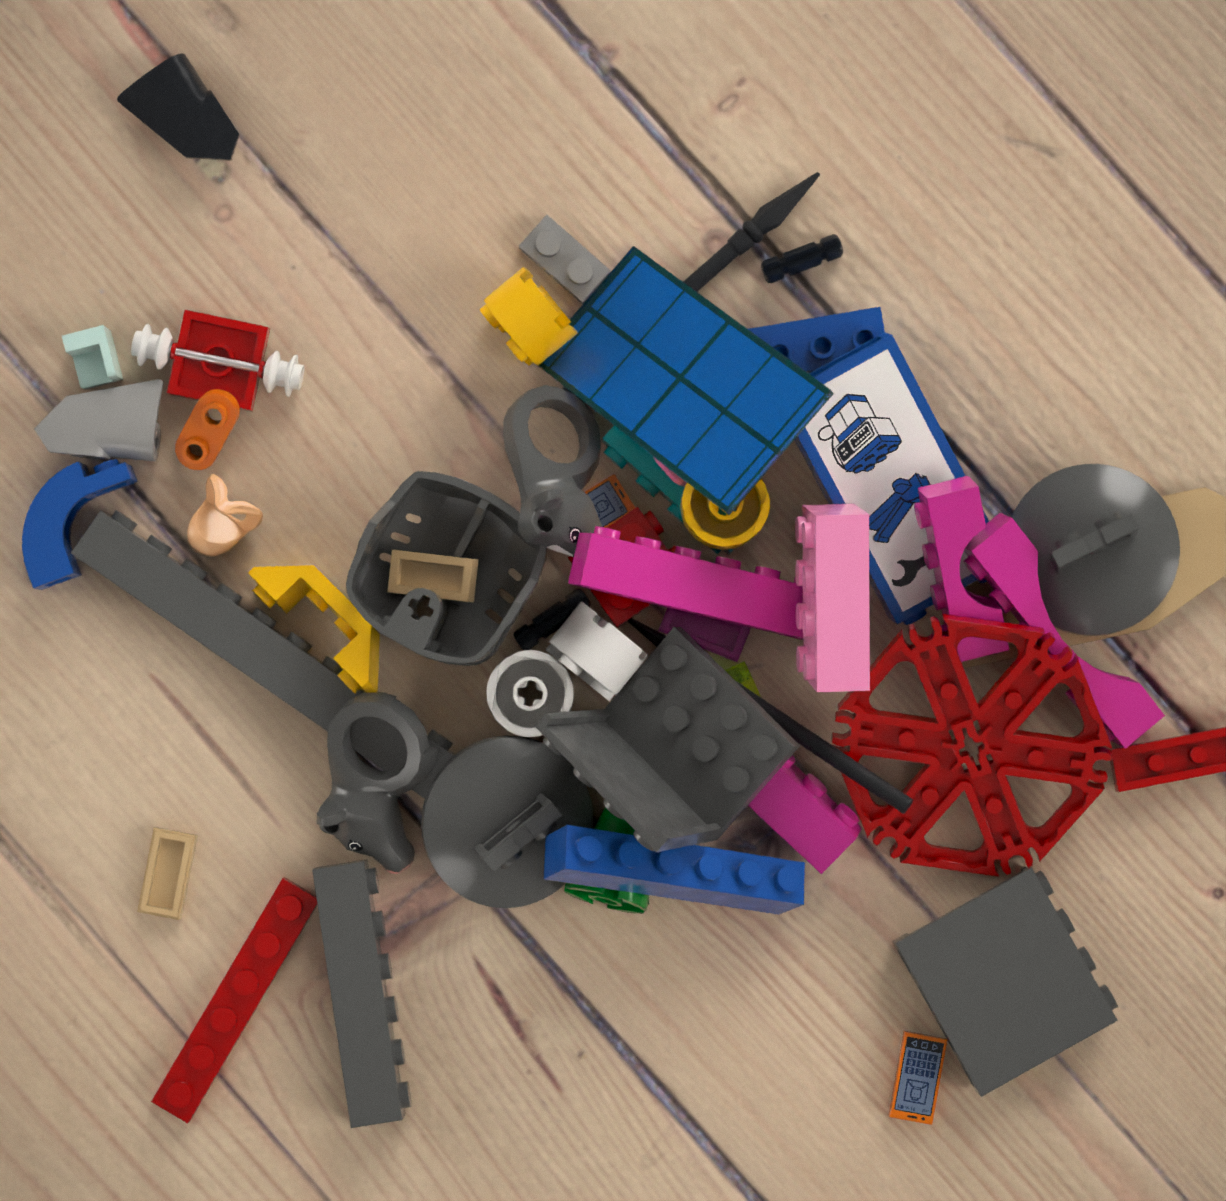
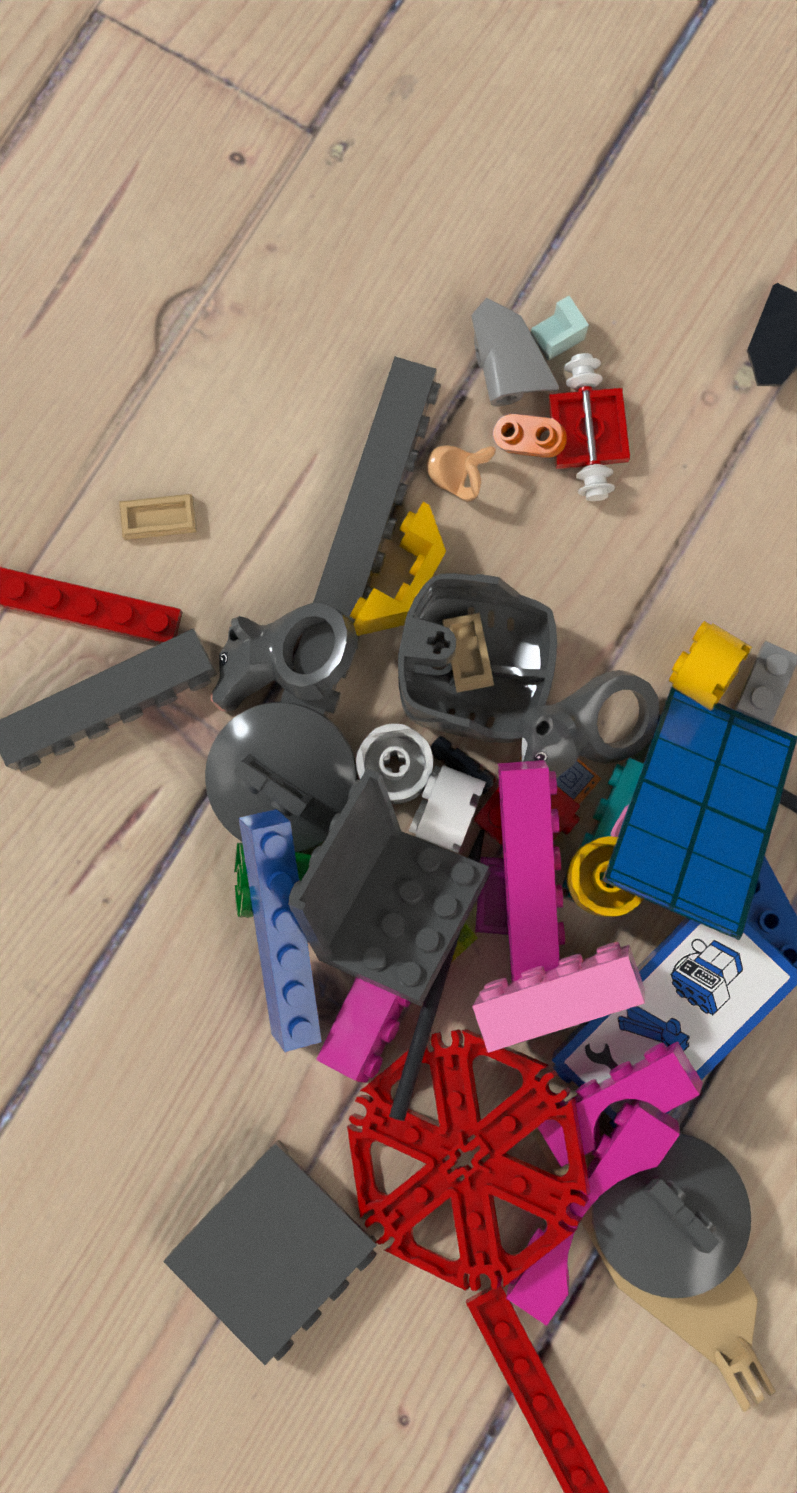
camera: 75 degrees right, 5 degrees down
(52, 513) = (421, 336): blue arch -> none
(917, 1077) = (166, 1198): tile -> none

